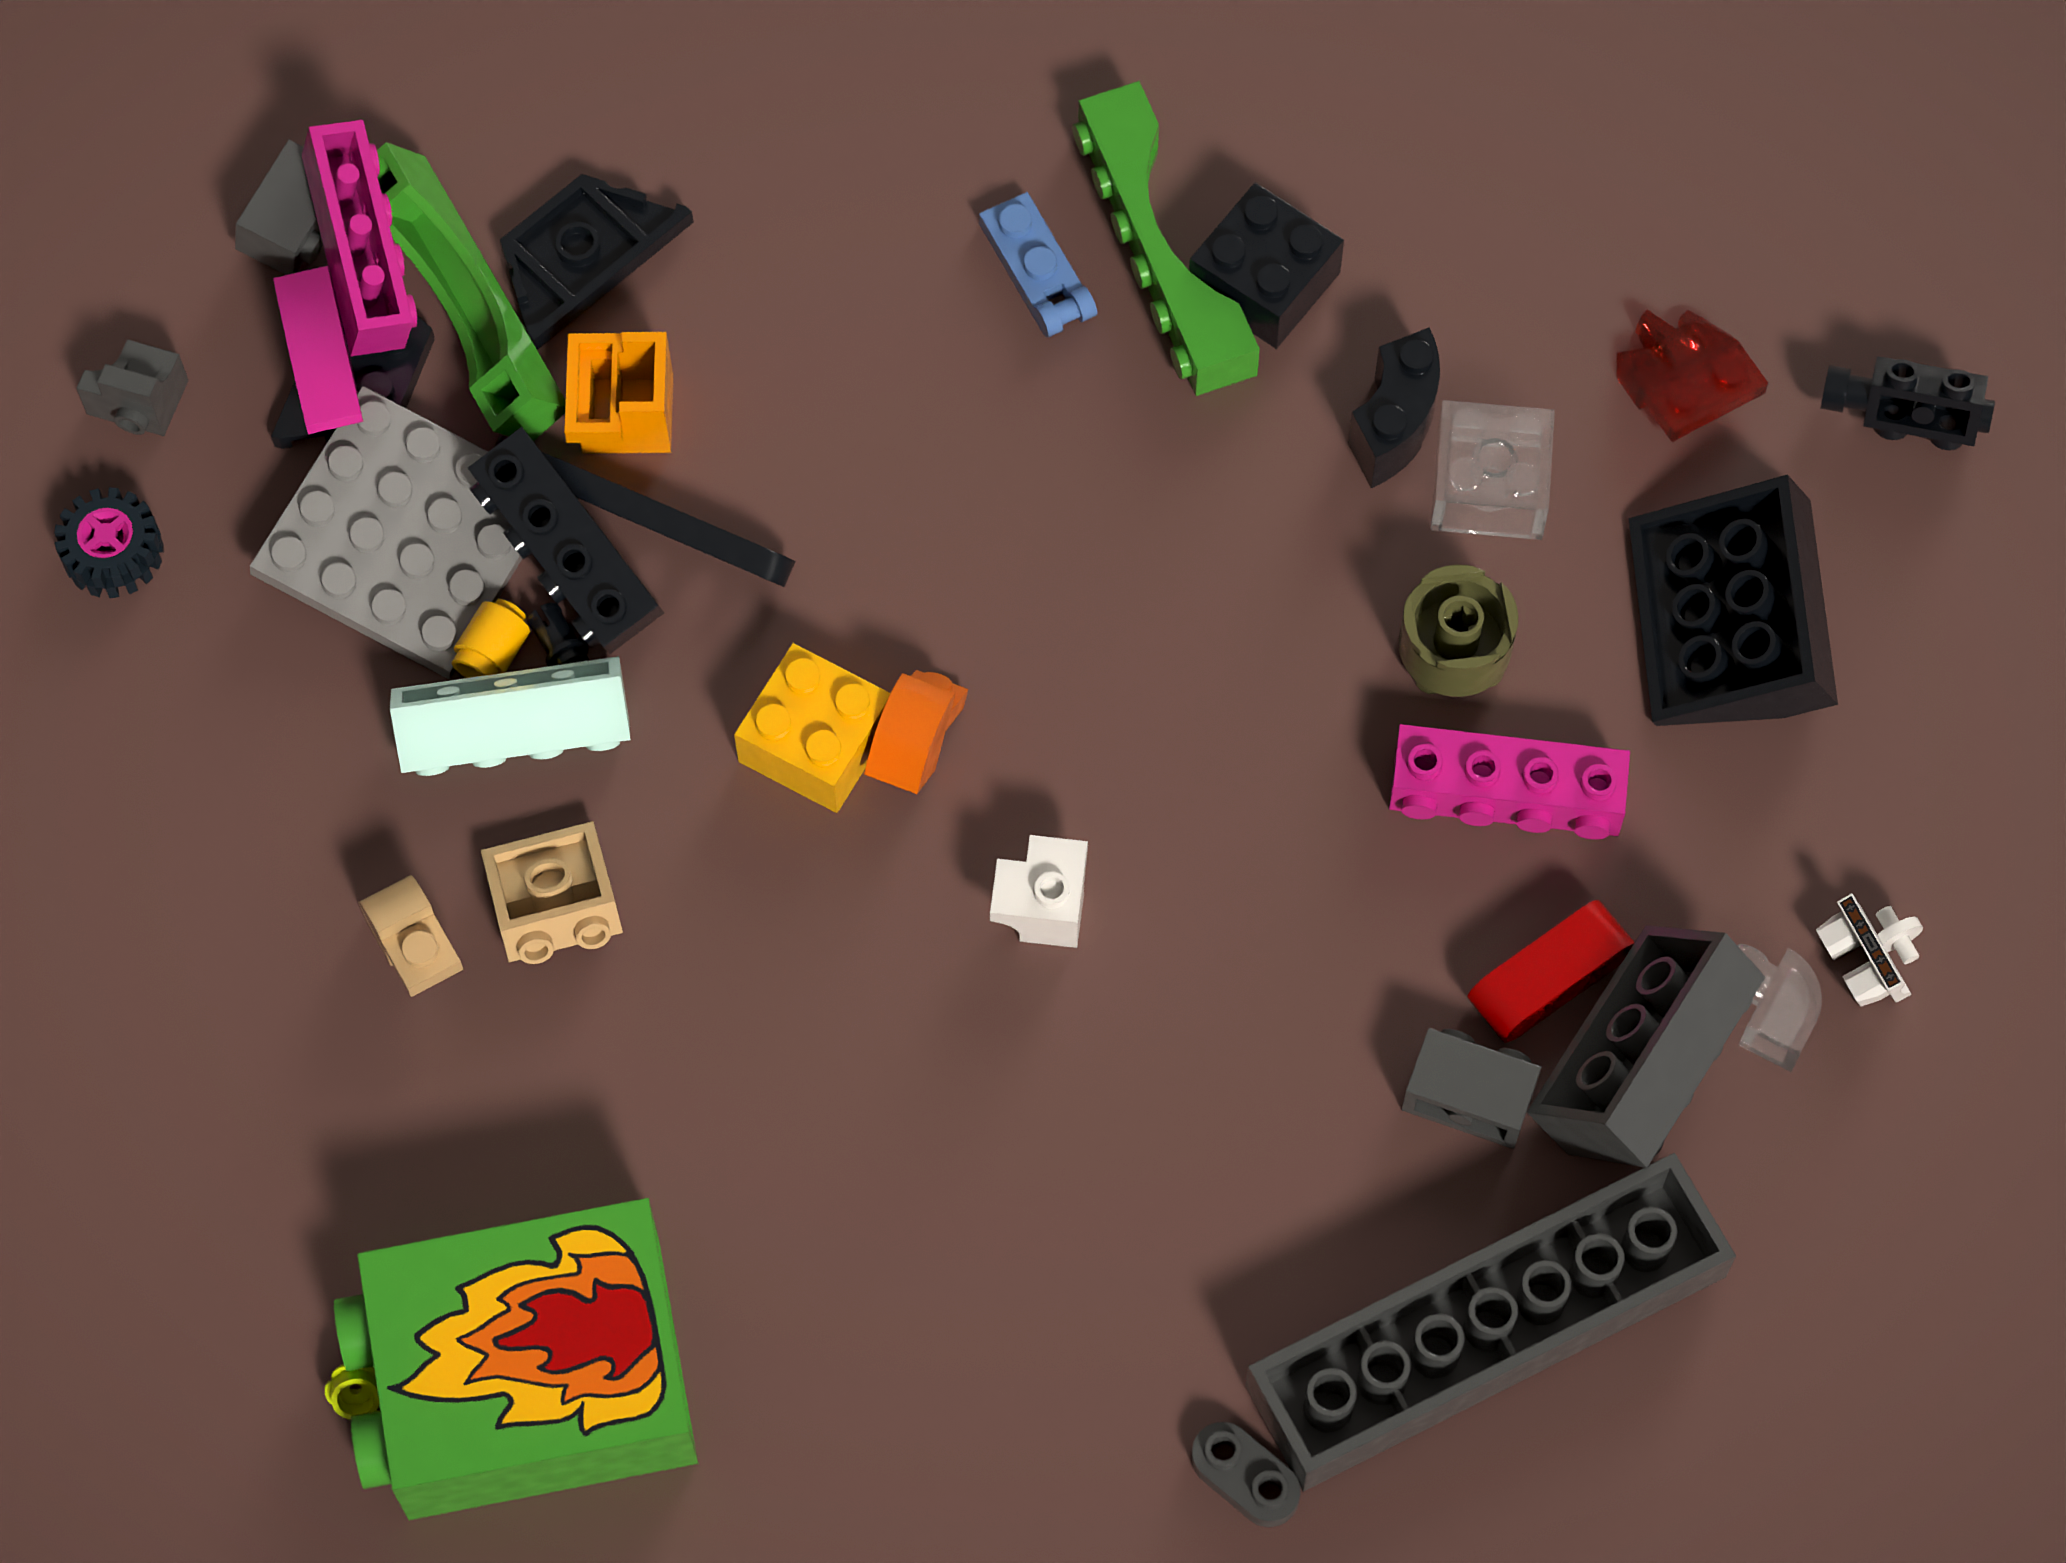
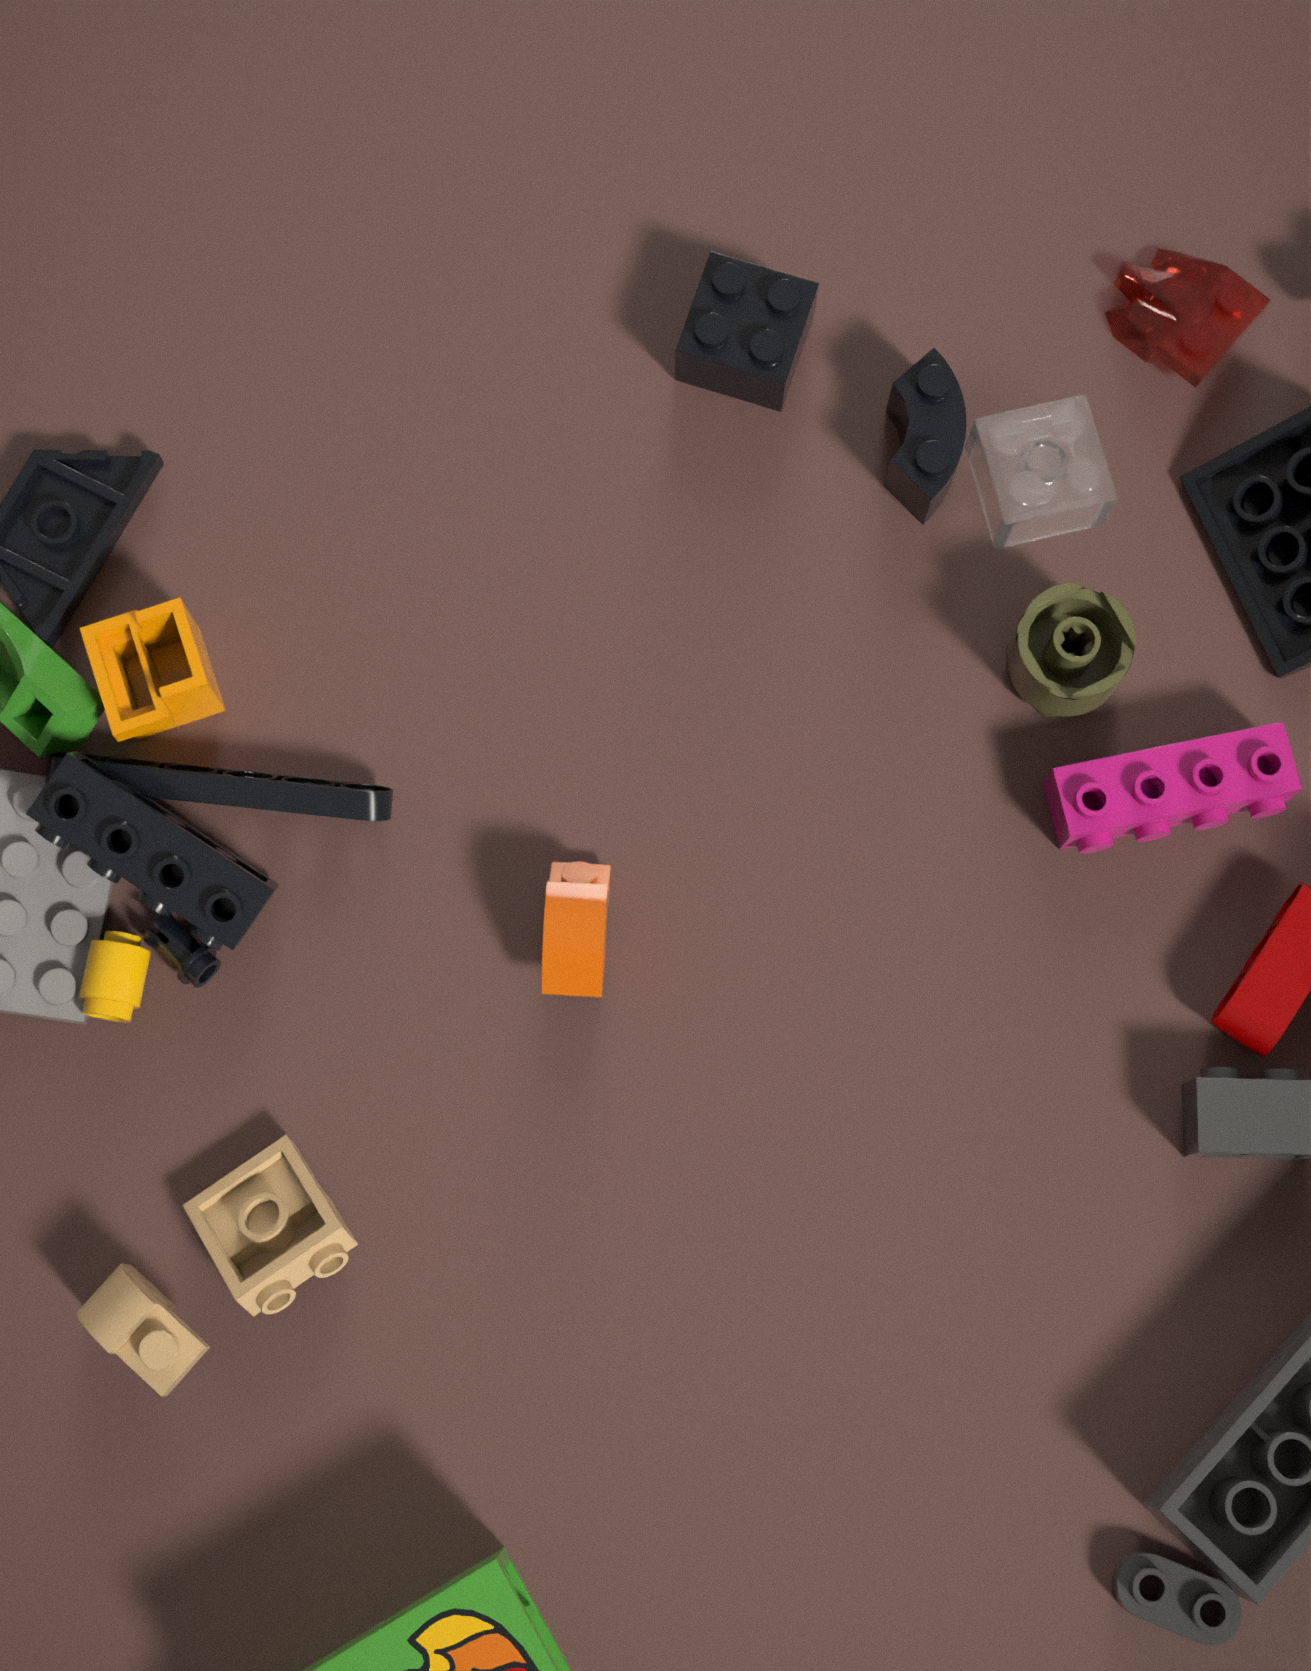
camera: 20 degrees left, 10 degrees up
(510, 716) = (160, 1054): light aqua brick -> none
(812, 728) = (474, 960): yellow brick -> none
(1036, 264) = (519, 399): medium blue plate -> none
(1043, 893) = (768, 1060): white brick -> none
(1206, 328) = (708, 413): bright green arch -> none

